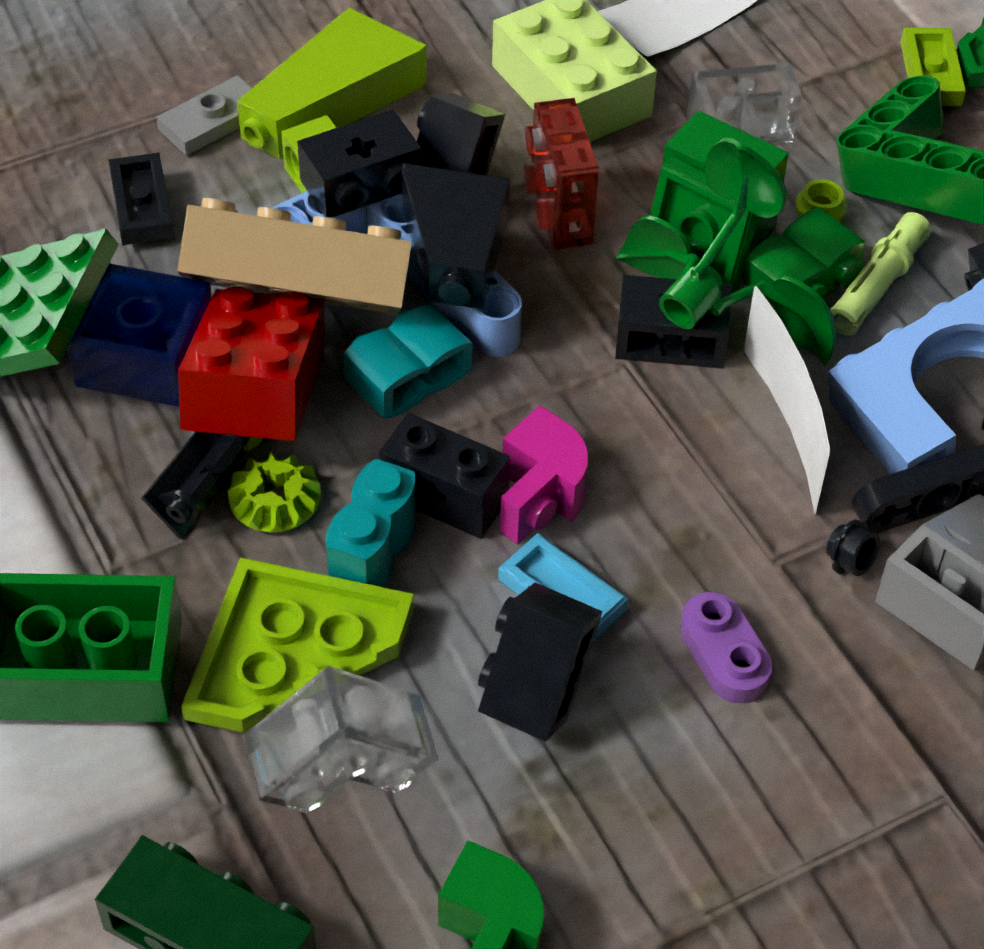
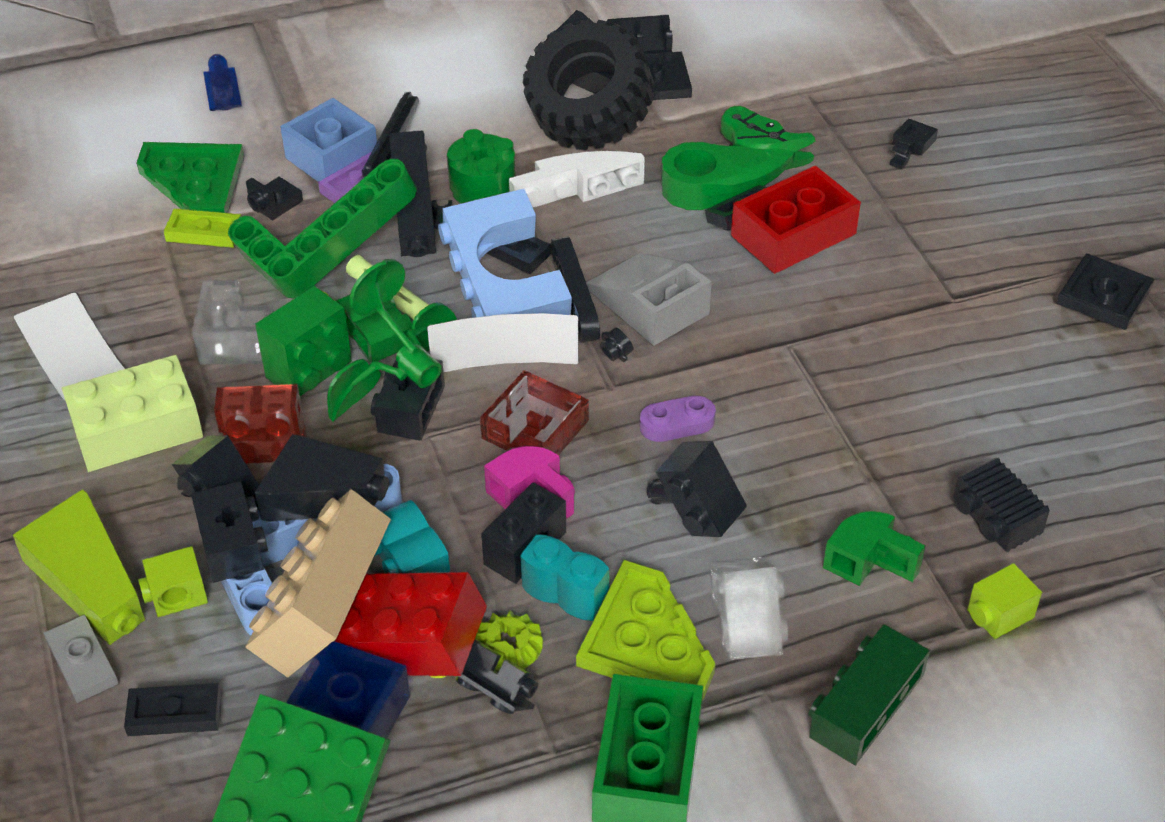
camera: 80 degrees left, 5 degrees down
(551, 567) = (617, 491): medium azure tile -> none
(663, 462) = (534, 417): none -> clear red piece
(699, 213) = (332, 350): green tile -> none

